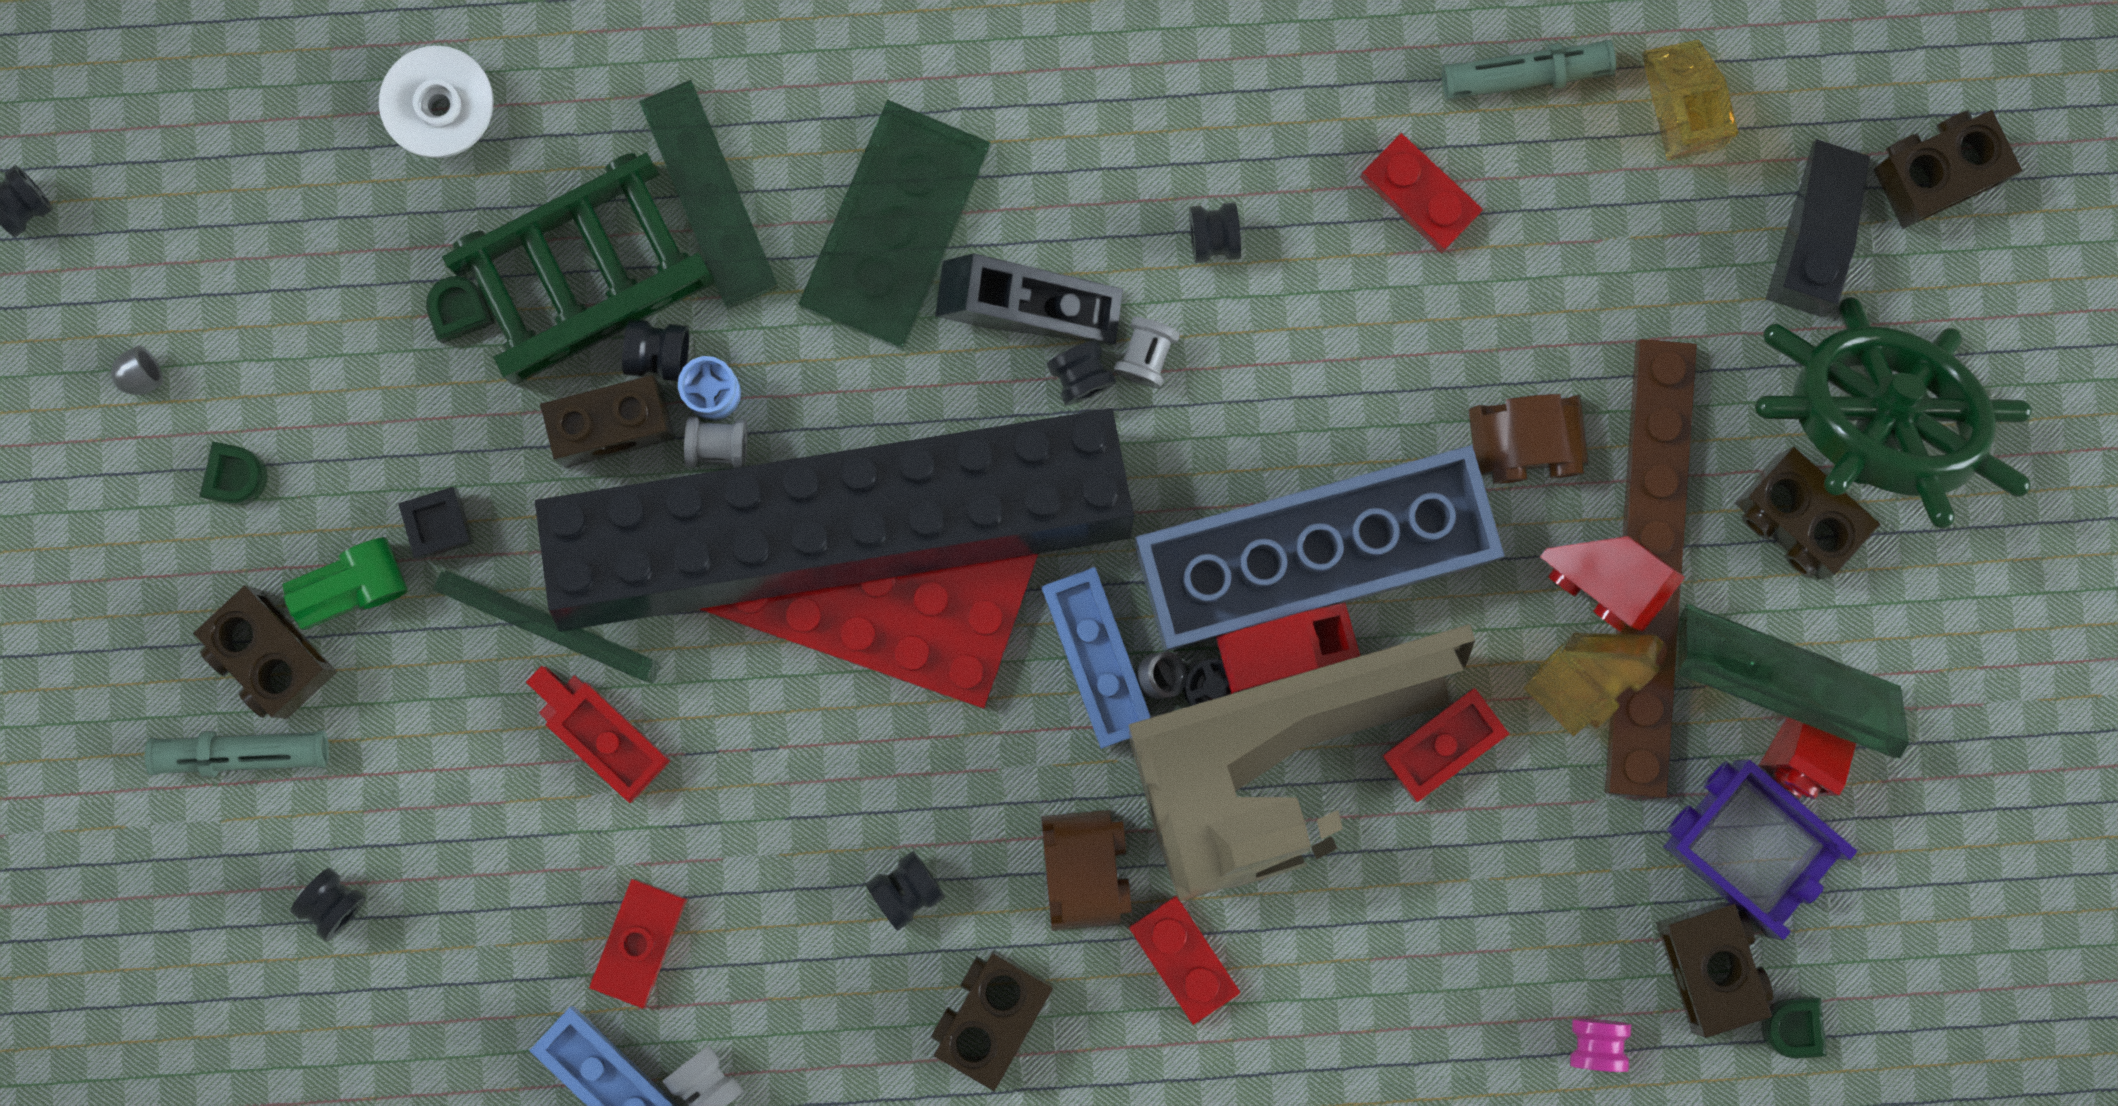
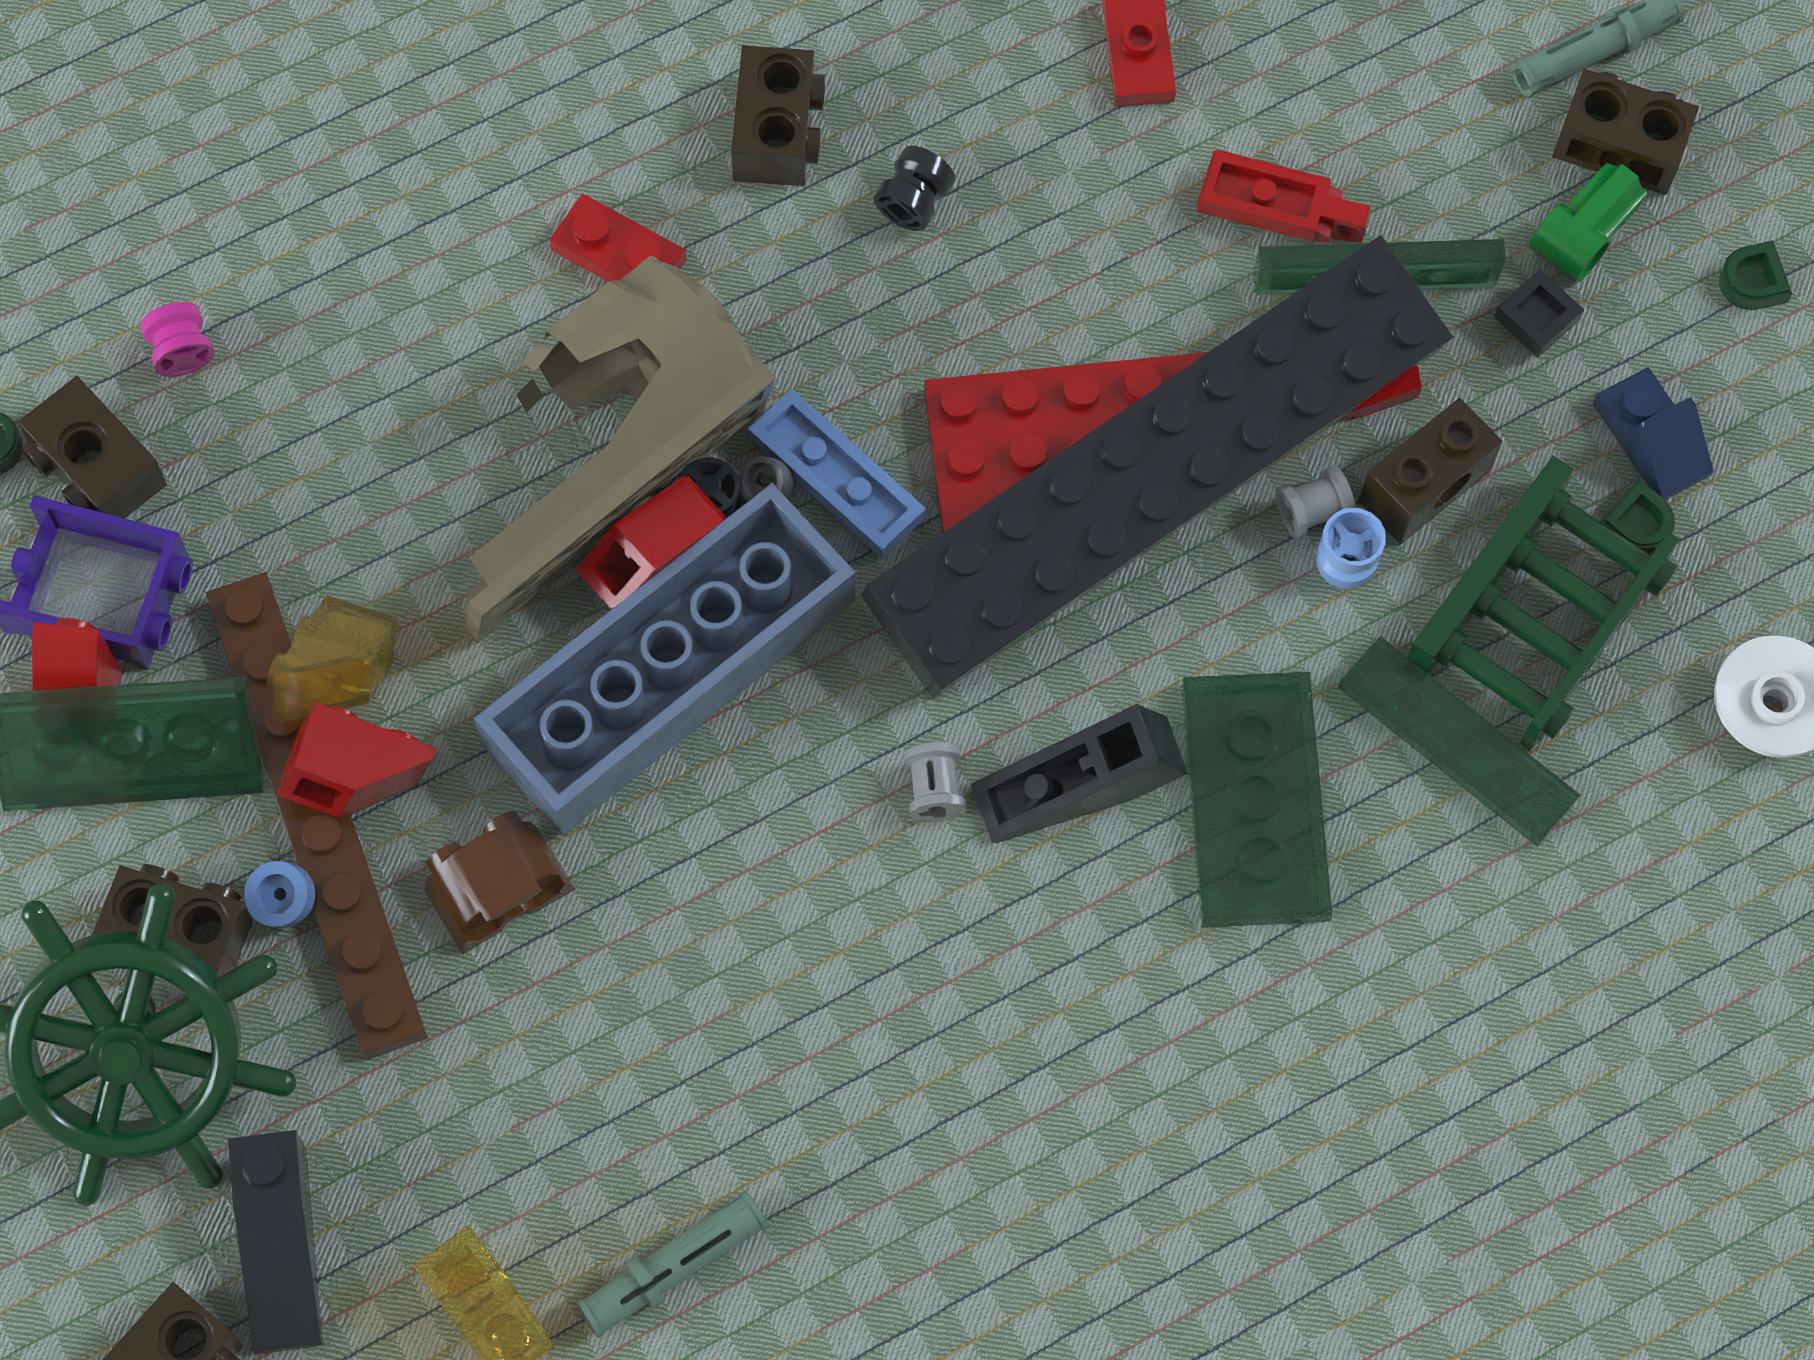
camera: 155 degrees right, 15 degrees down
(400, 376) = (1655, 434): none -> dark blue slope
(655, 349) = (1426, 559): black wheel -> none
(1081, 372) = (990, 730): black wheel -> none
(1083, 870) = (758, 282): reddish brown cylinder -> none
(1215, 232) = (924, 931): black wheel -> none
(1421, 193) = (727, 1082): red plate -> none
(1444, 745) = (438, 560): red plate -> none
(1712, 499) = (279, 894): none -> medium blue tile

